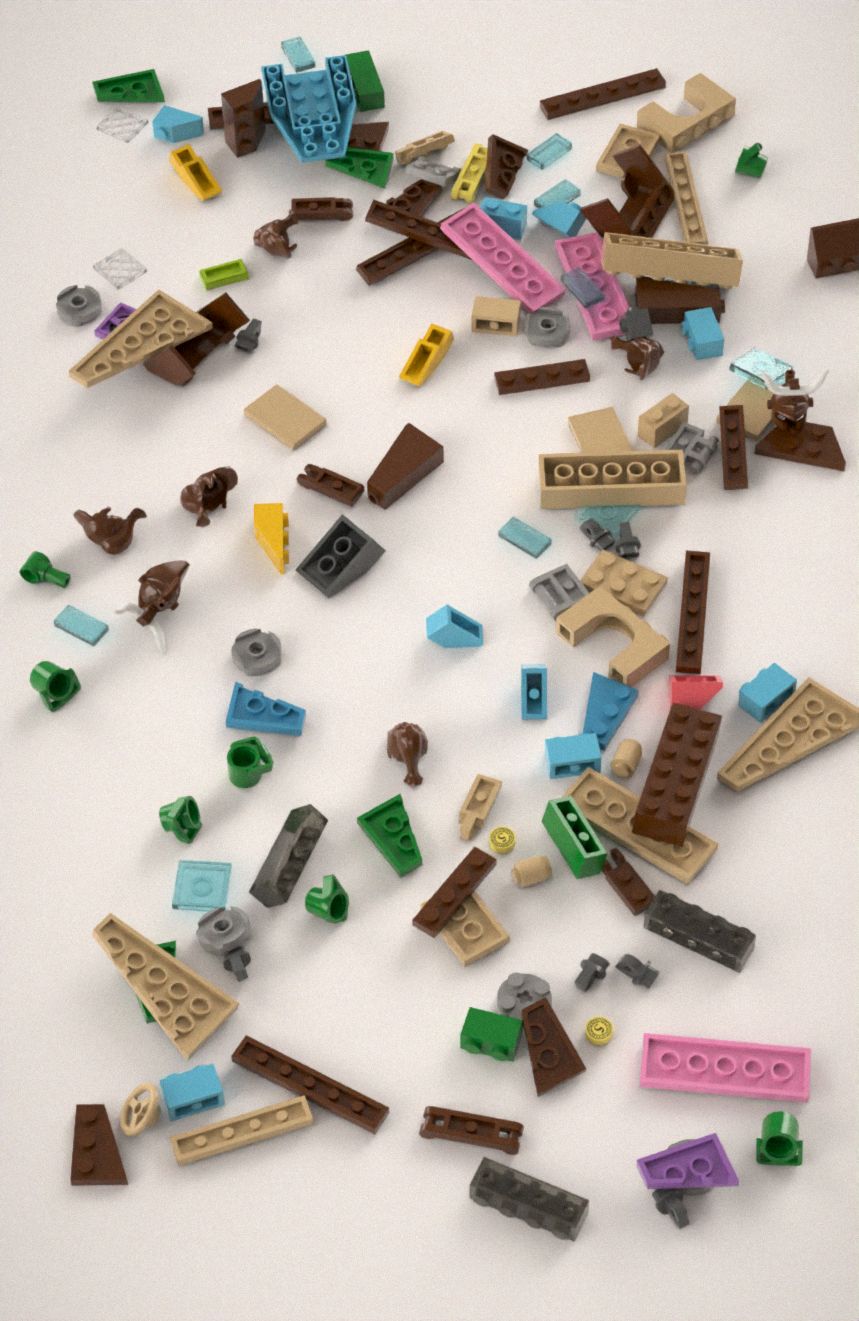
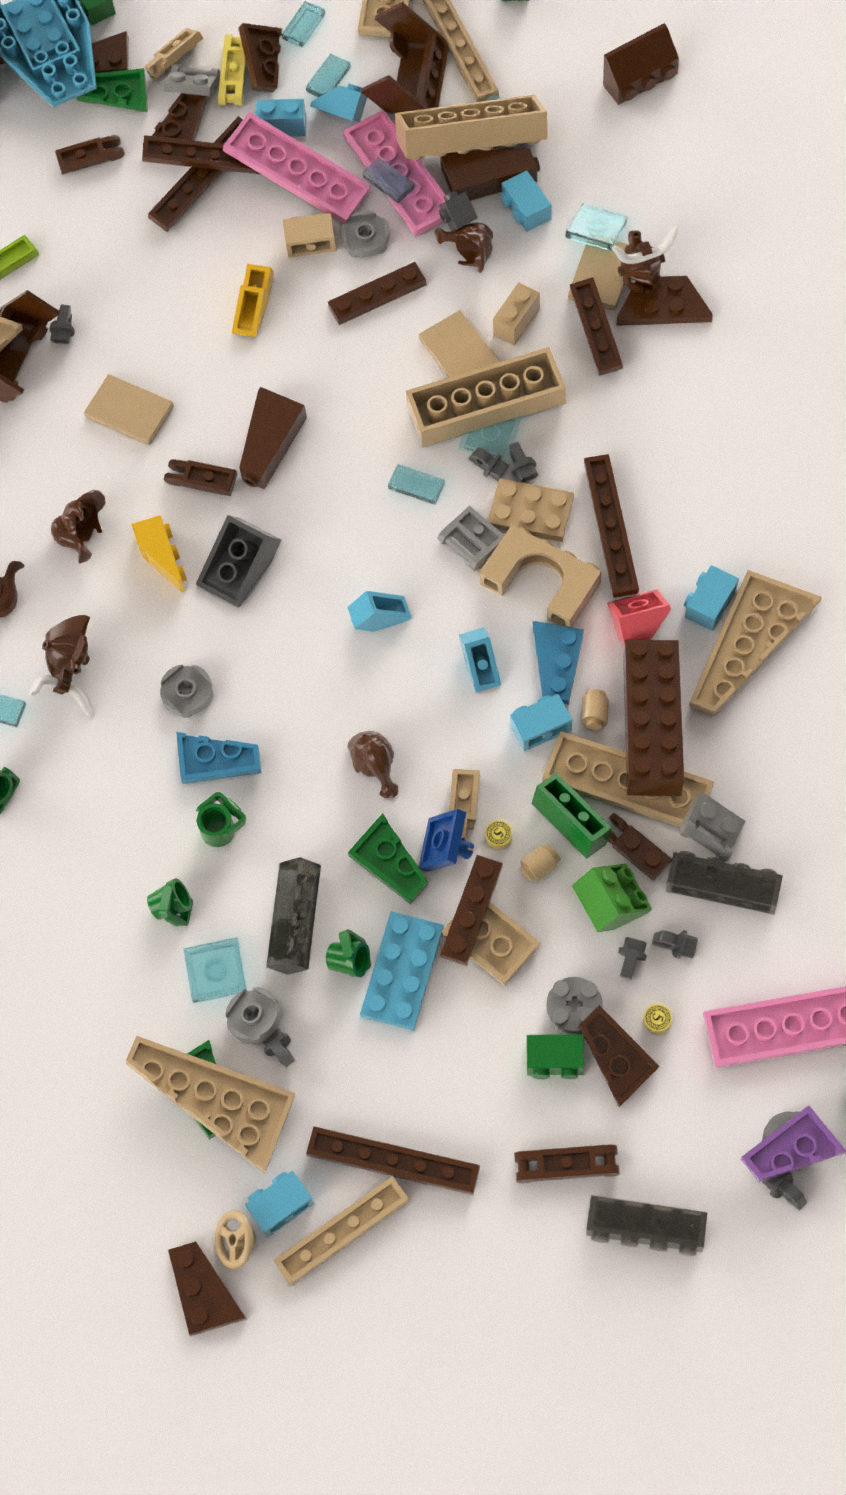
camera: 10 degrees left, 15 degrees up
(274, 236) = (51, 201): reddish brown piece -> none
(373, 931) = (402, 971): none -> medium azure plate
(448, 829) = (444, 841): none -> blue tile
(589, 915) = (611, 896): none -> bright green slope
(688, 439) = (545, 332): light grey plate -> none
(708, 875) = (717, 821): none -> light grey plate

